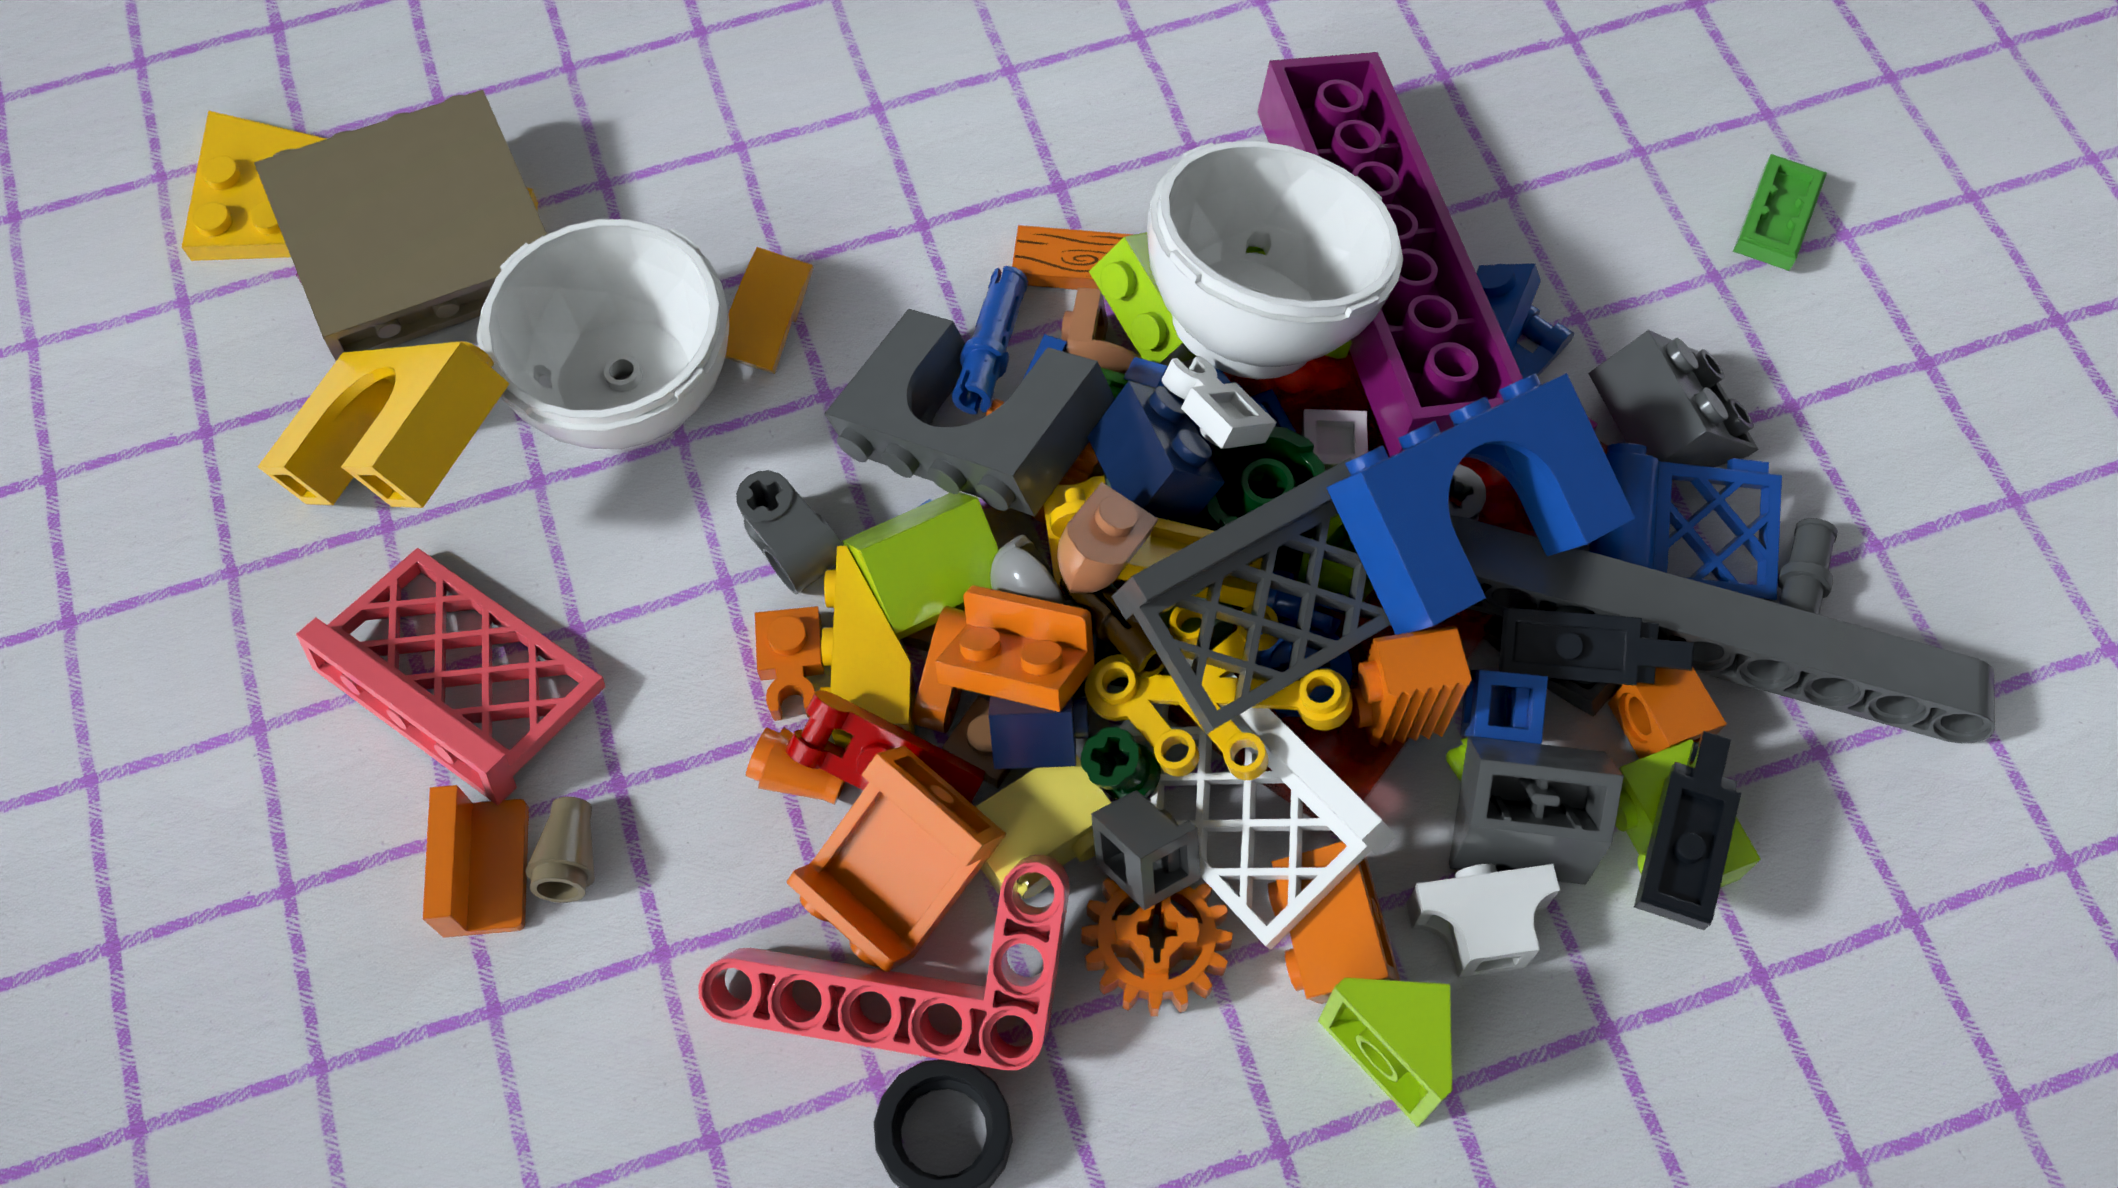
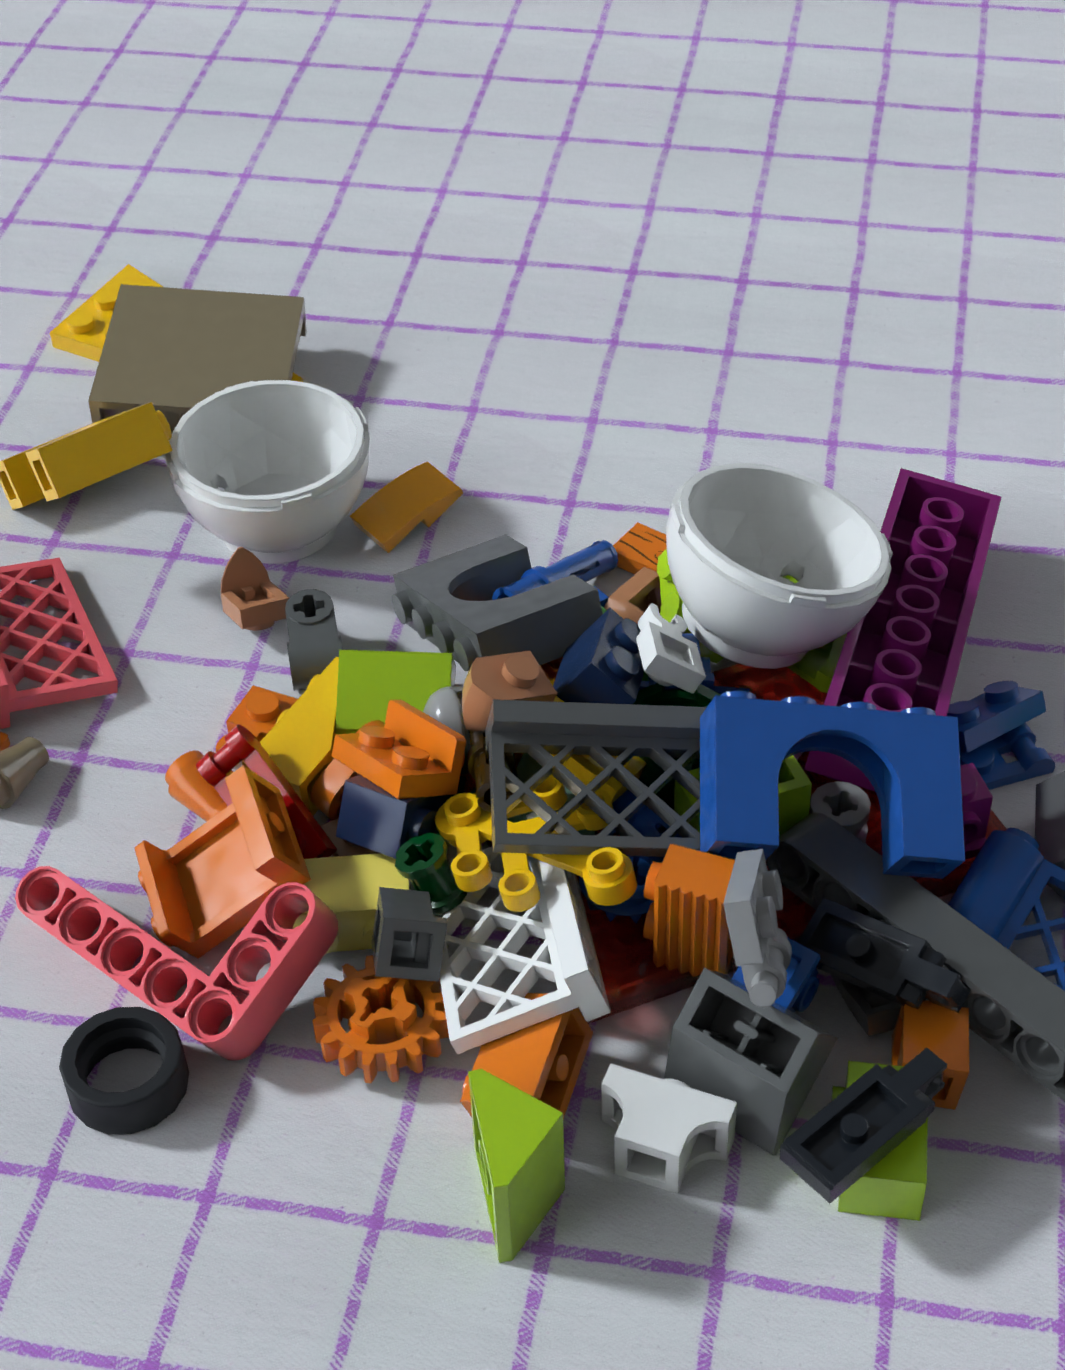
camera: 30 degrees right, 20 degrees down
(678, 503) = (249, 594): none -> nougat plate
(1519, 700) = (752, 925): none -> light grey plate

